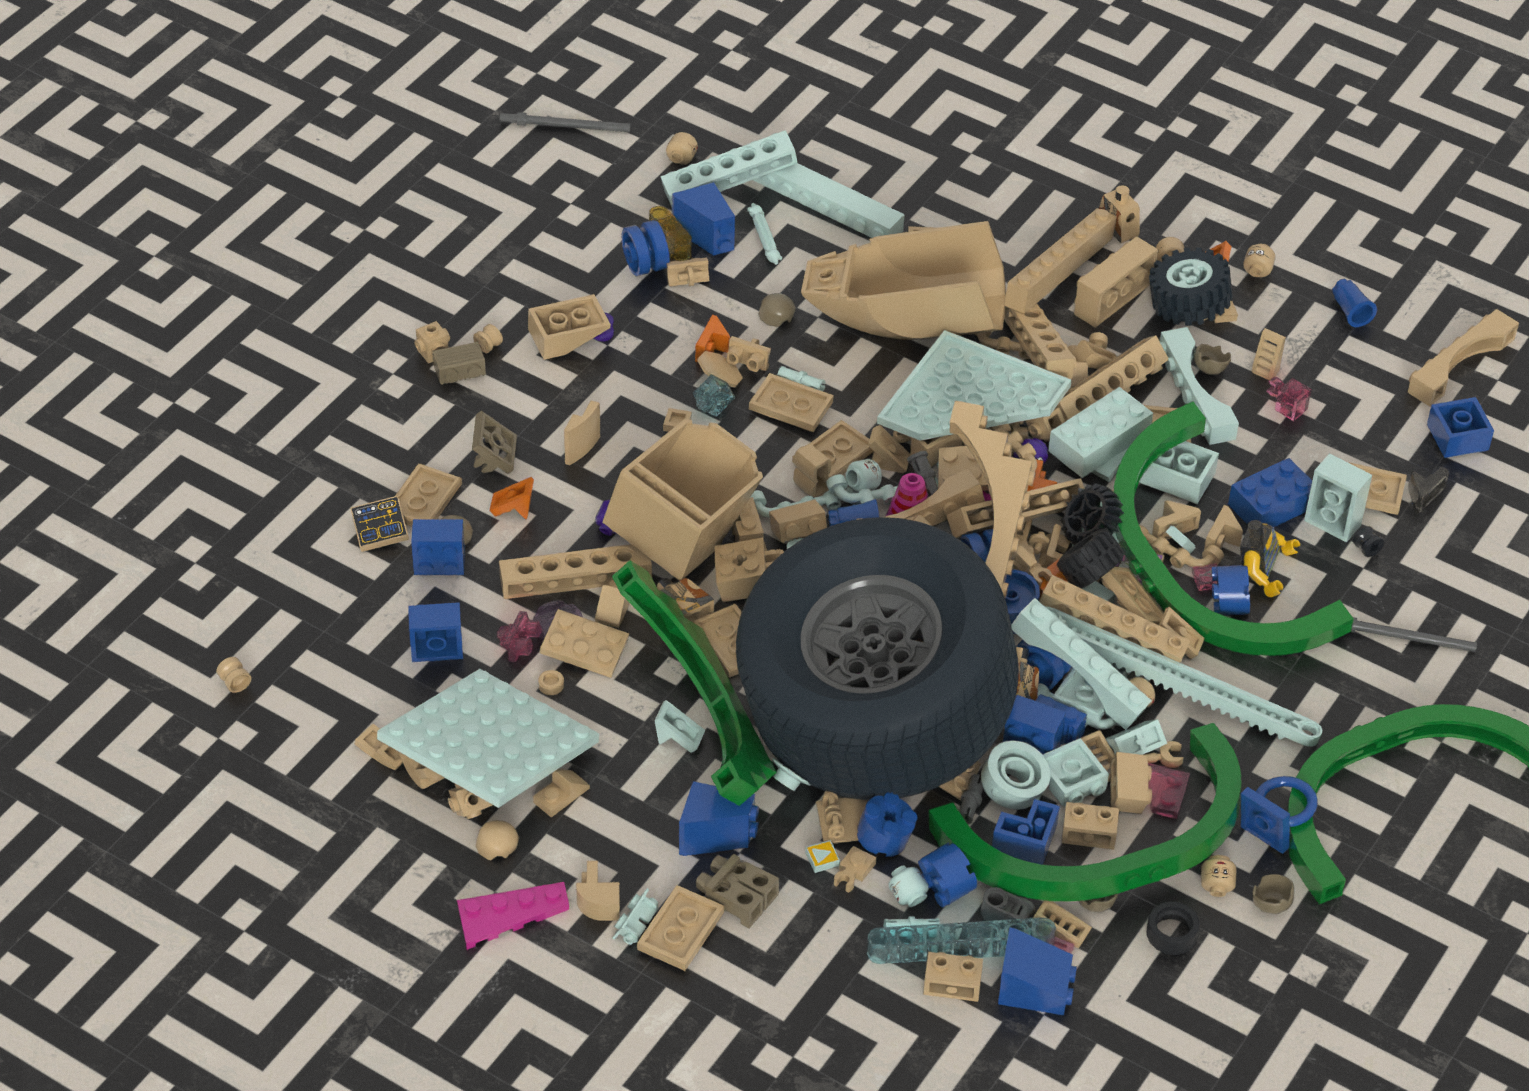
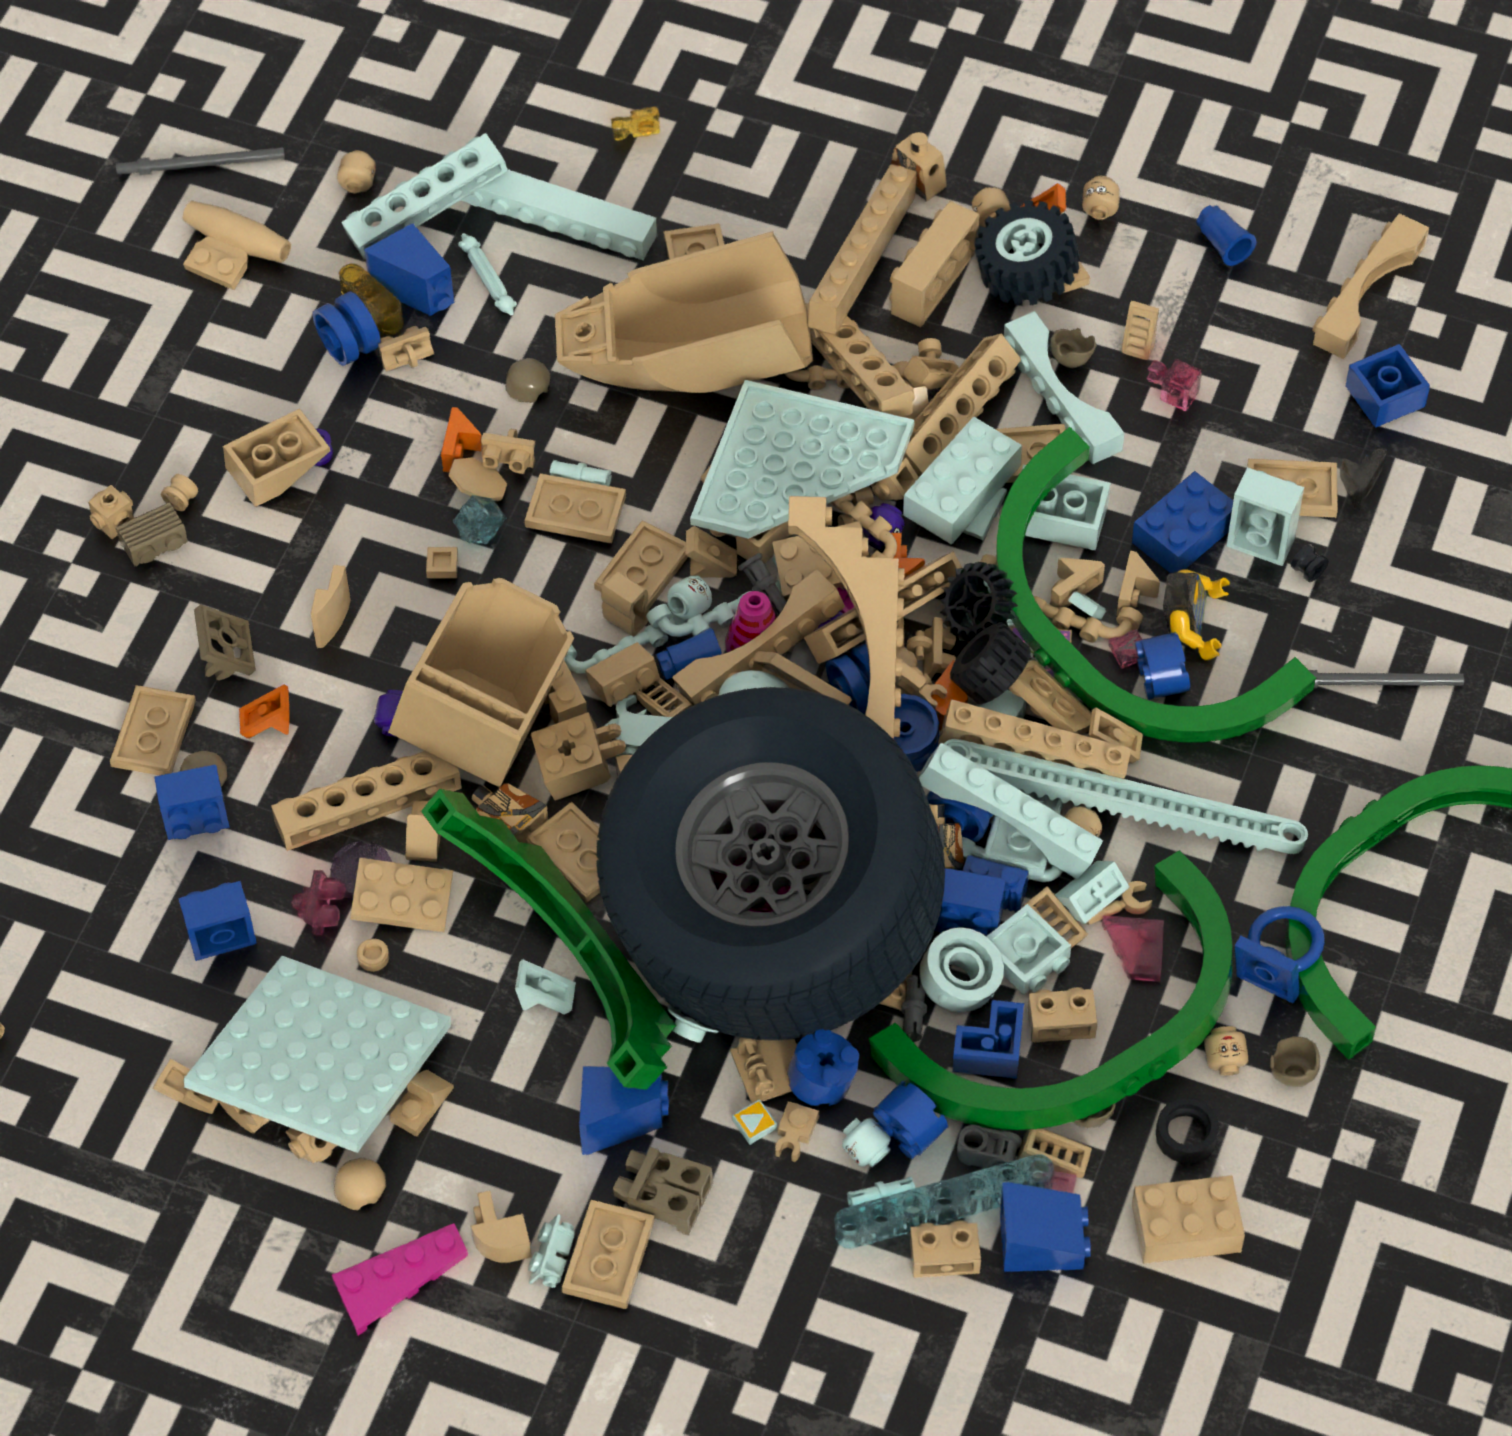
camera: 10 degrees left, 10 degrees up
(379, 523) = (109, 780): black tile -> none
(571, 179) = (228, 243): none -> tan plate
(910, 151) = (641, 123): none -> clear yellow plate
(1130, 782) = (1097, 950): tan brick -> none
(1157, 992) = (1187, 1219): none -> tan brick

